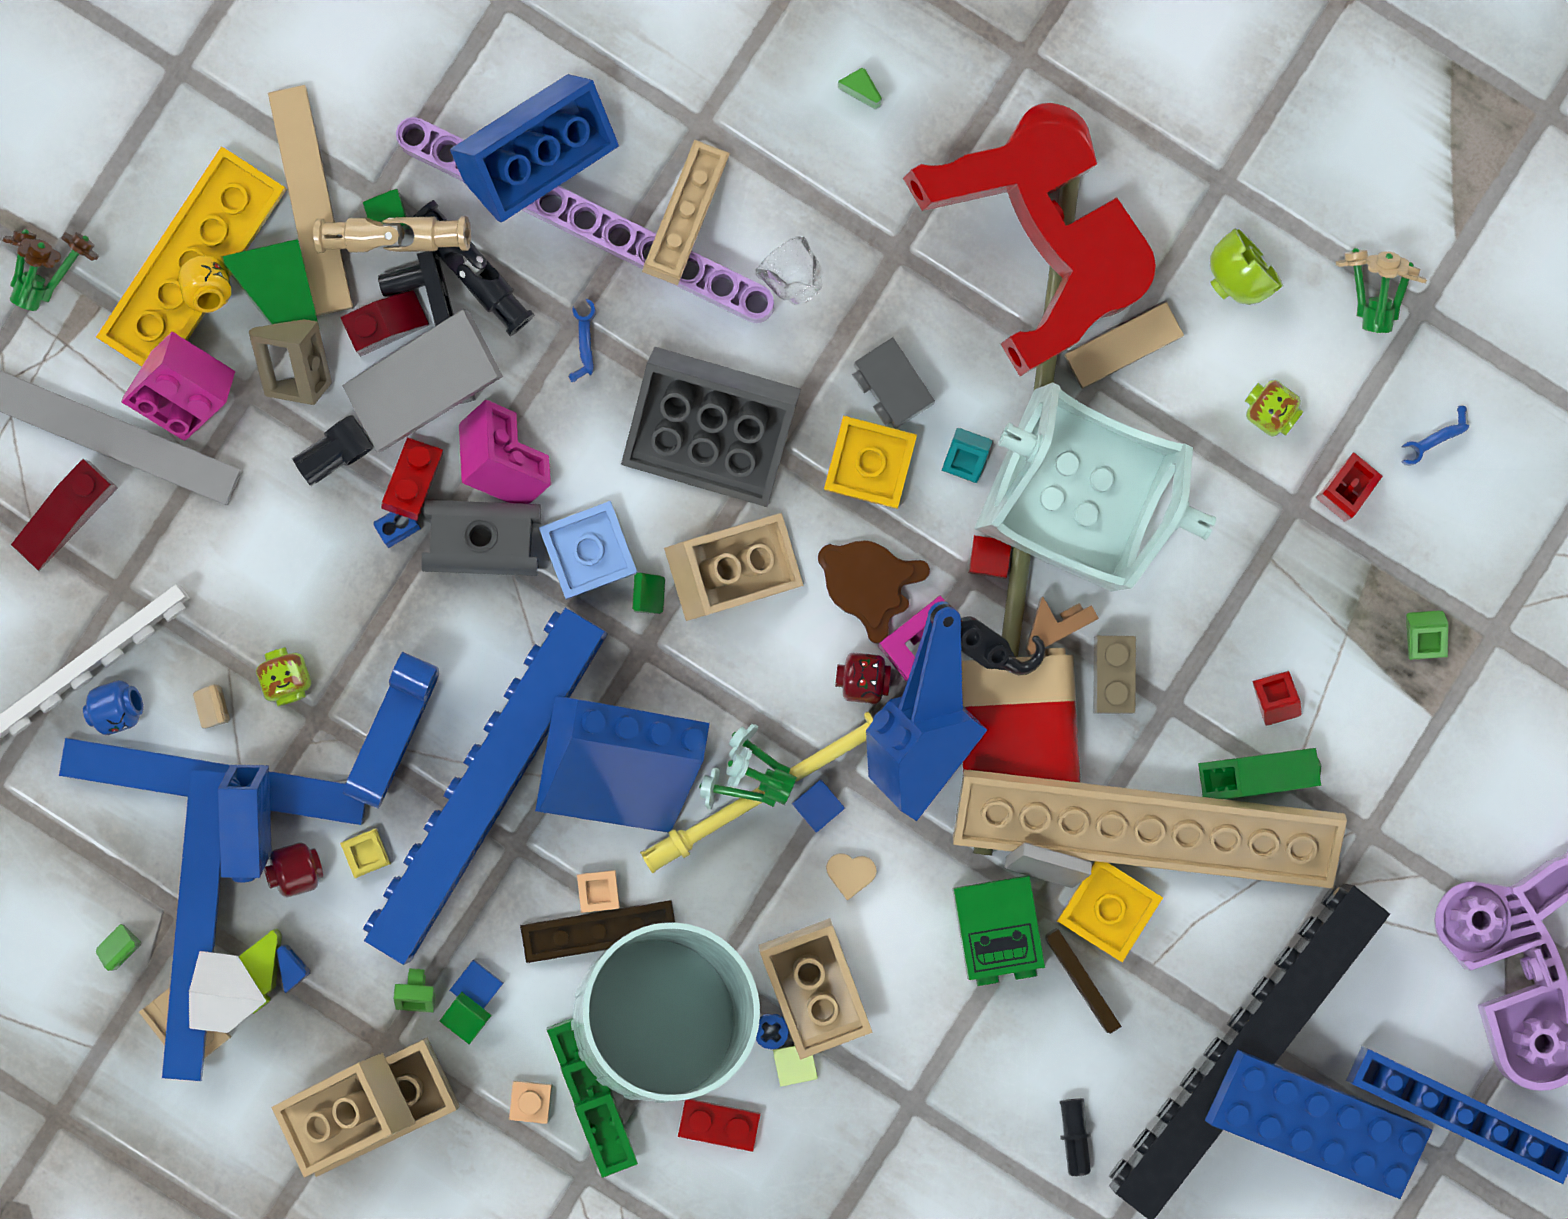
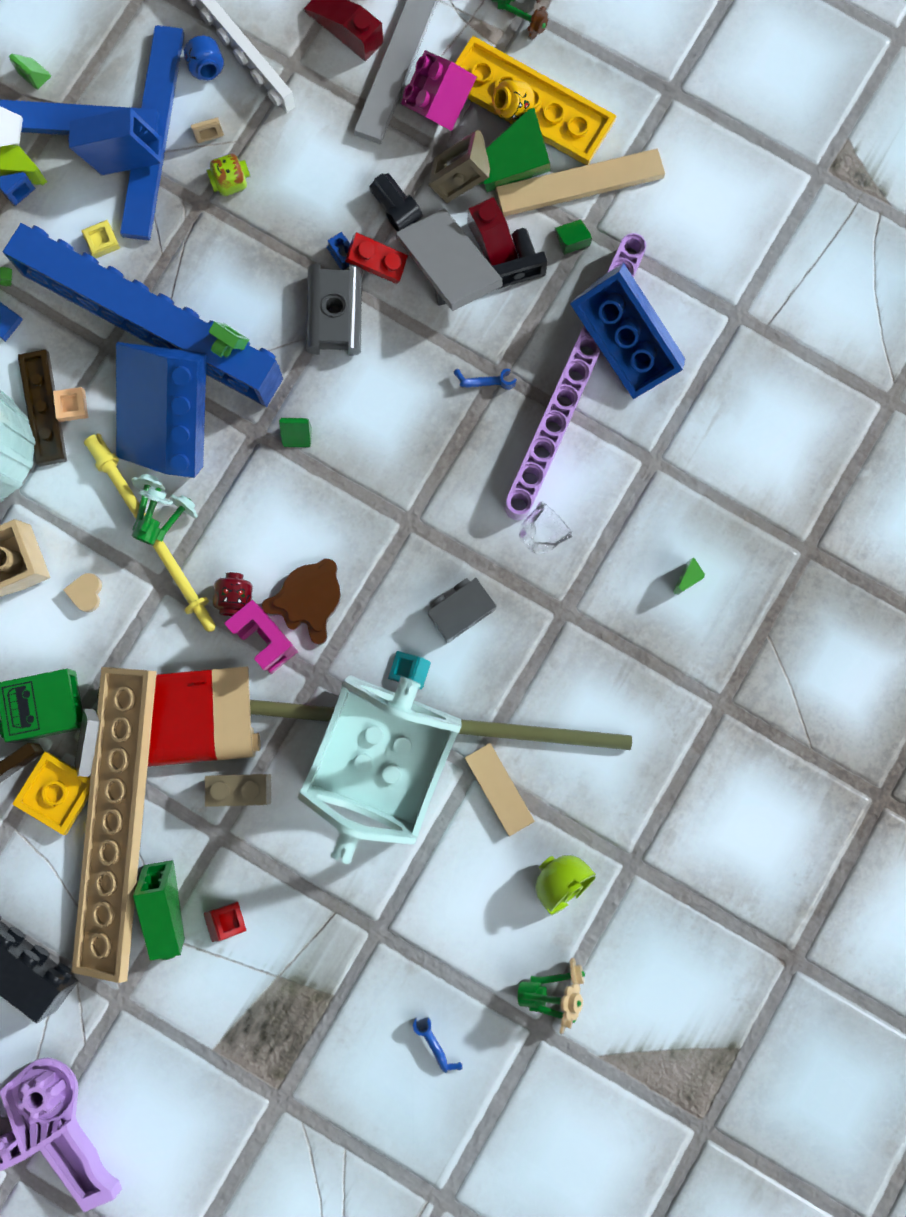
camera: 85 degrees right, 5 degrees down
(294, 869) = (85, 186): dark red head -> none
(367, 234) = (556, 216): tan piece -> none
(392, 729) = (213, 260): blue beam -> none
(490, 290) = (538, 293): black piece -> none
(496, 460) = (390, 316): dark pink panel -> none
(539, 665) = (227, 339): none -> bright green tile
(588, 550) = (327, 387): light blue plate -> none
(685, 212) = (584, 446): tan tile -> none
(710, 426) = (424, 473): dark grey slope -> none
(733, 566) = (316, 495): tan slope -> none
(818, 806) = (136, 565): blue slope -> none
(870, 462) = (400, 595): yellow plate -> none
(928, 731) = (190, 643): blue slope -> none
(989, 557) = (327, 689): red slope -> none
(1050, 631) = (271, 737): medium nougat slope -> none
(1099, 256) = (568, 765): red animal -> none
(1273, 408) = (454, 911): lime head -> none
(1349, 487) = (392, 975): red slope -> none
(1427, 634) = (277, 1043): bright green slope -> none

